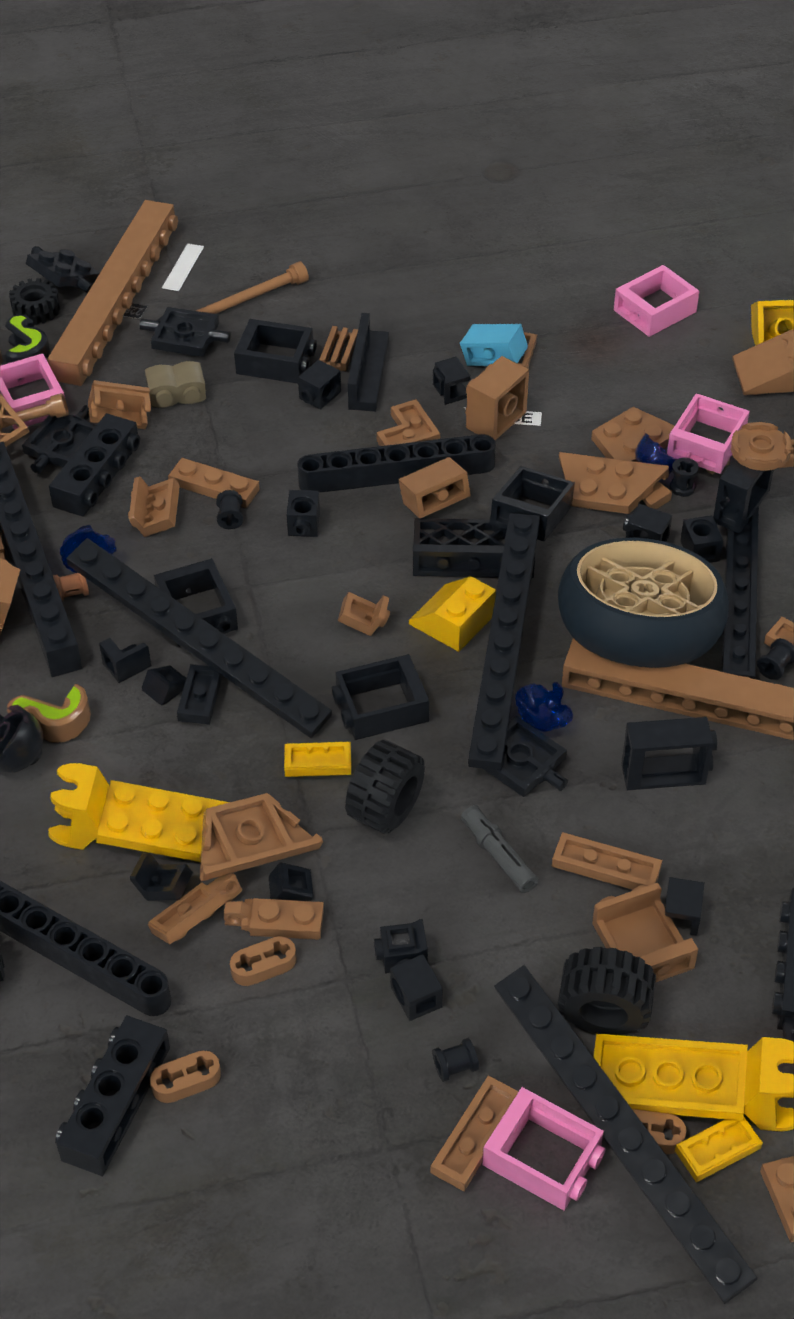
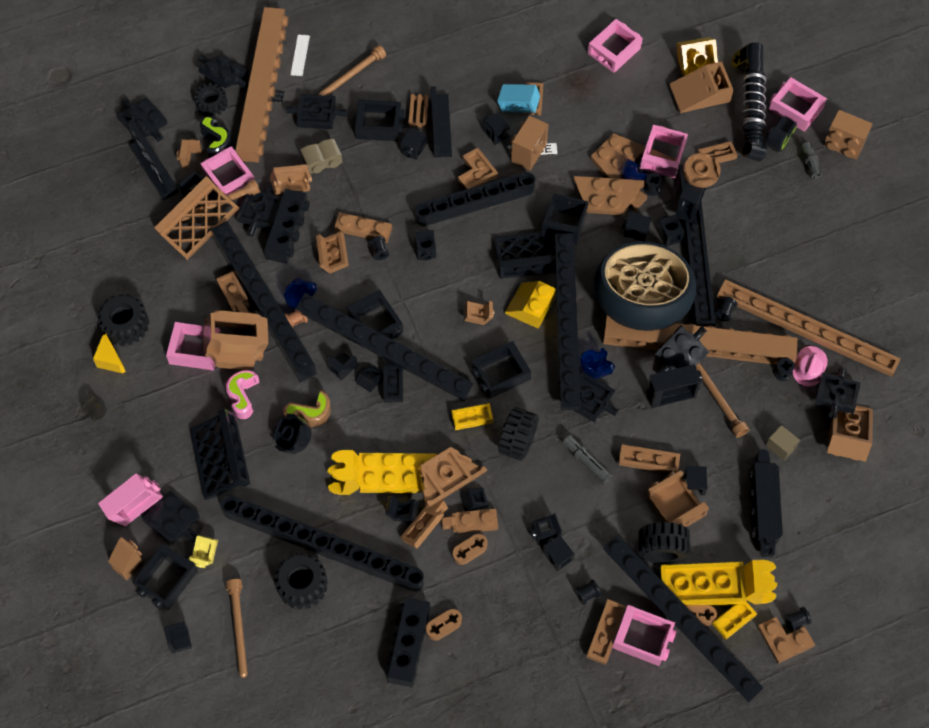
camera: 10 degrees left, 15 degrees up
(434, 487) = (503, 215): medium nougat brick -> none
(693, 695) = (682, 349): none -> black plate
(773, 837) = (739, 428): none -> medium nougat piece

